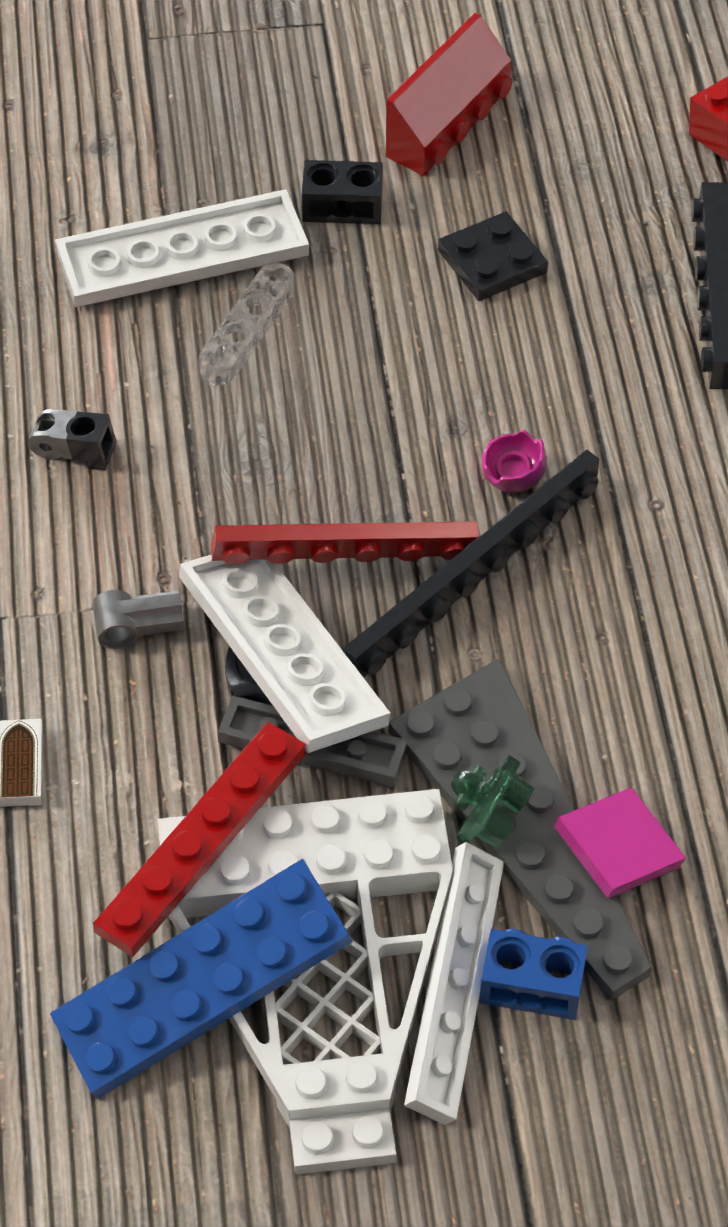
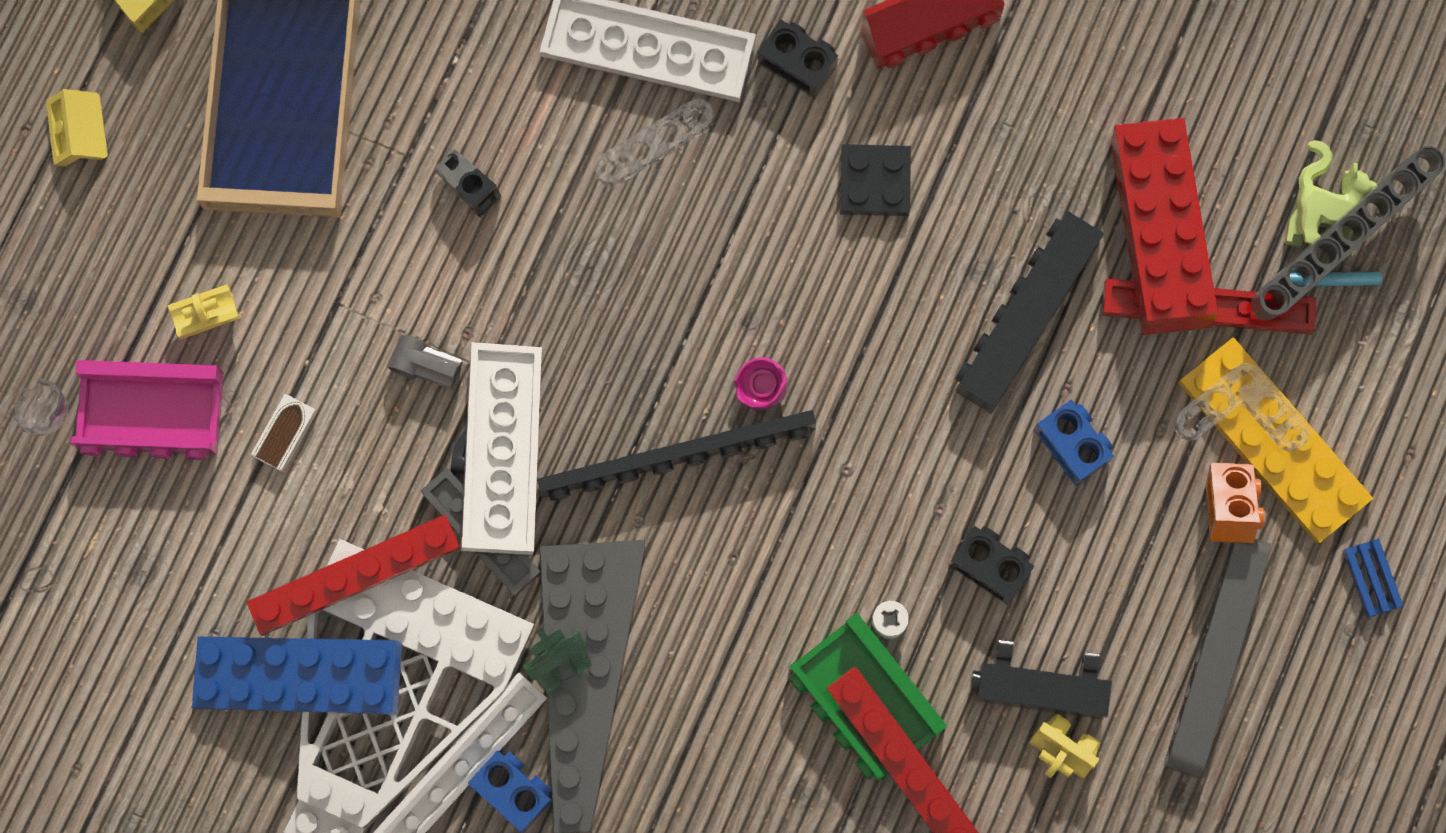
camera: 35 degrees right, 25 degrees up
(342, 540) = (607, 397): red plate -> none
(619, 842) = (629, 730): dark pink tile -> none

